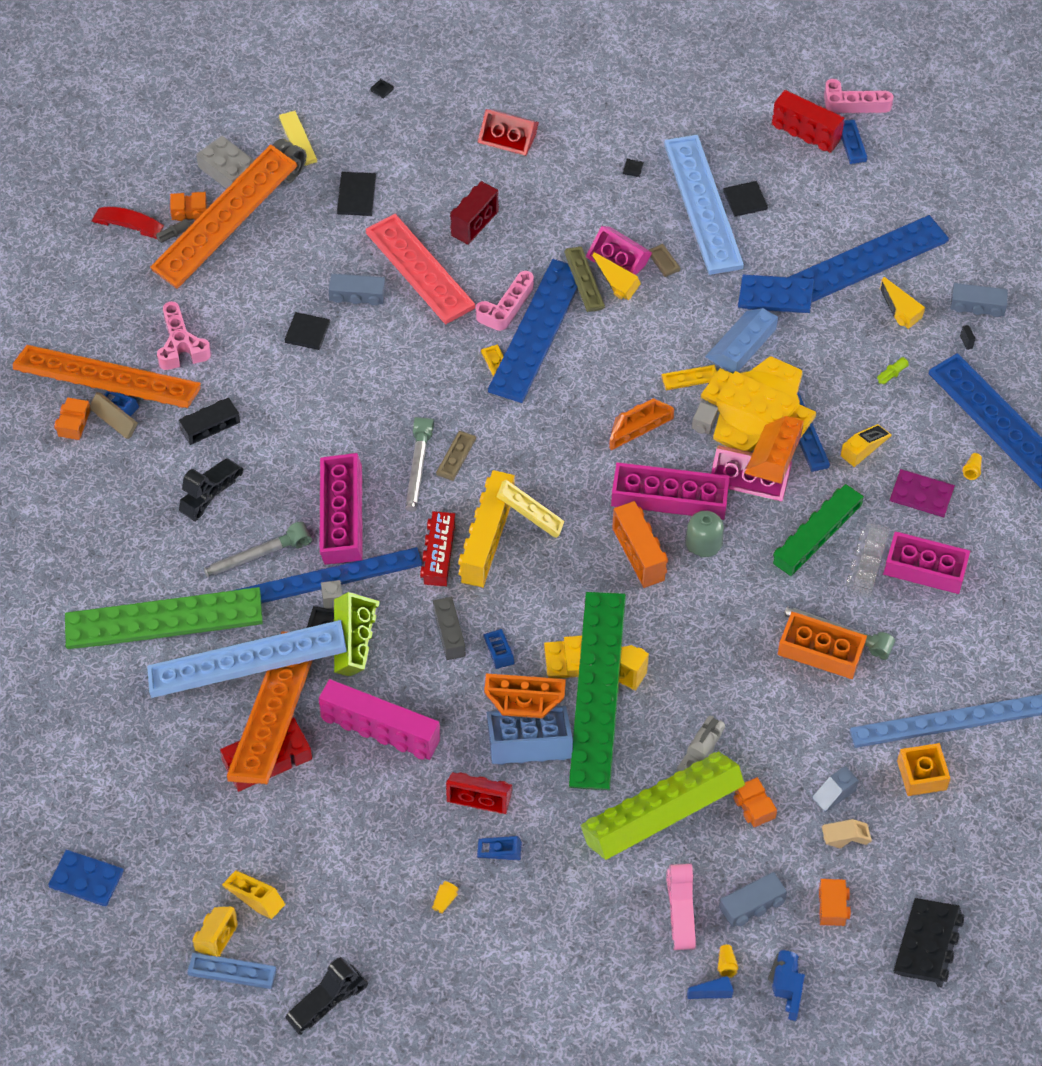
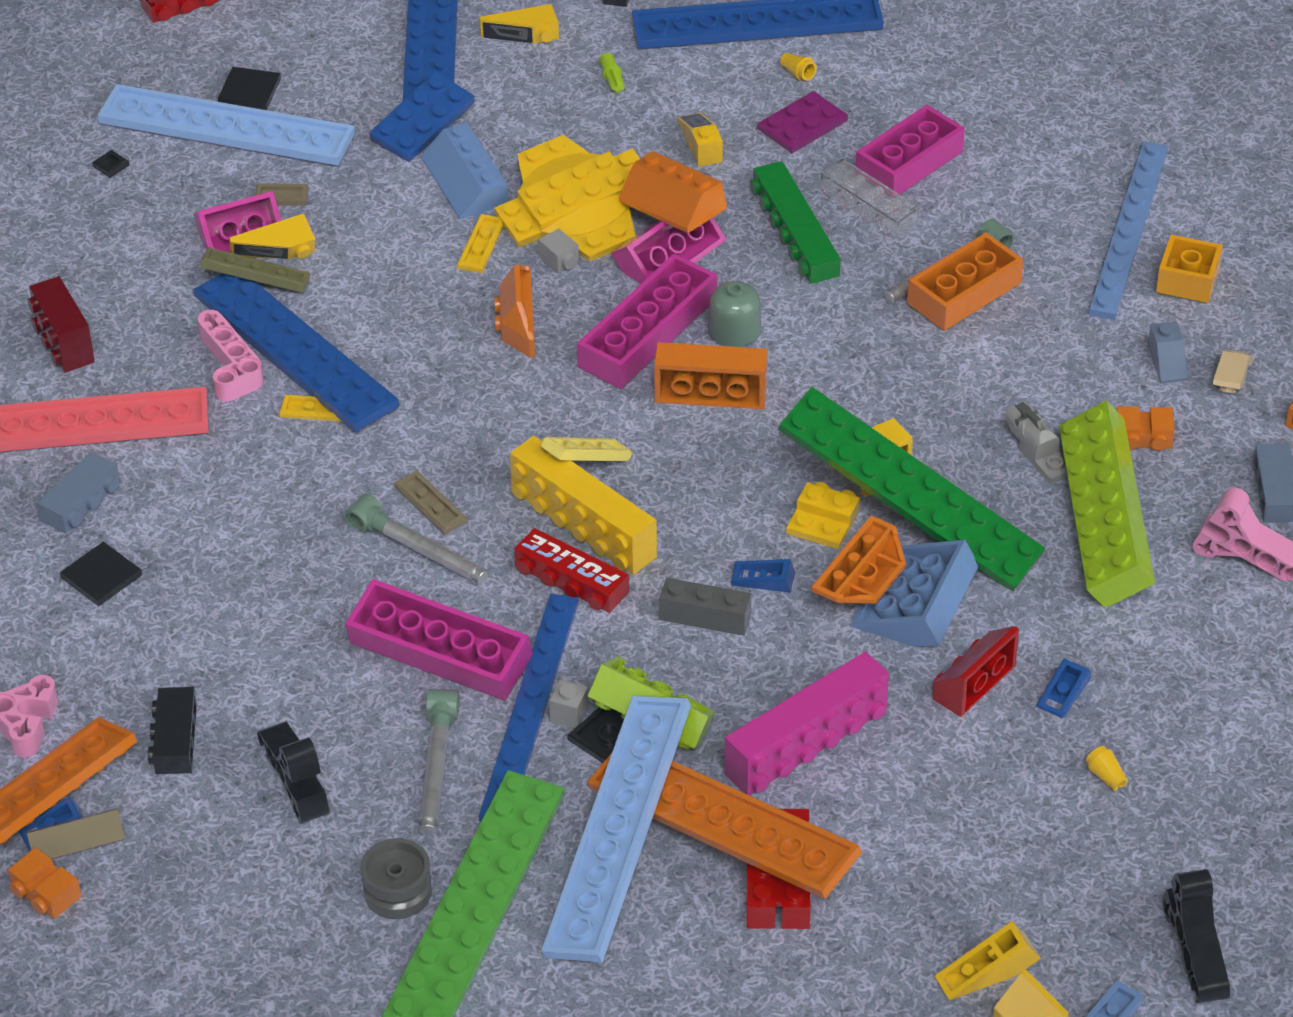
camera: 60 degrees left, 10 degrees down
(156, 572) = (396, 878): none -> dark grey wheel

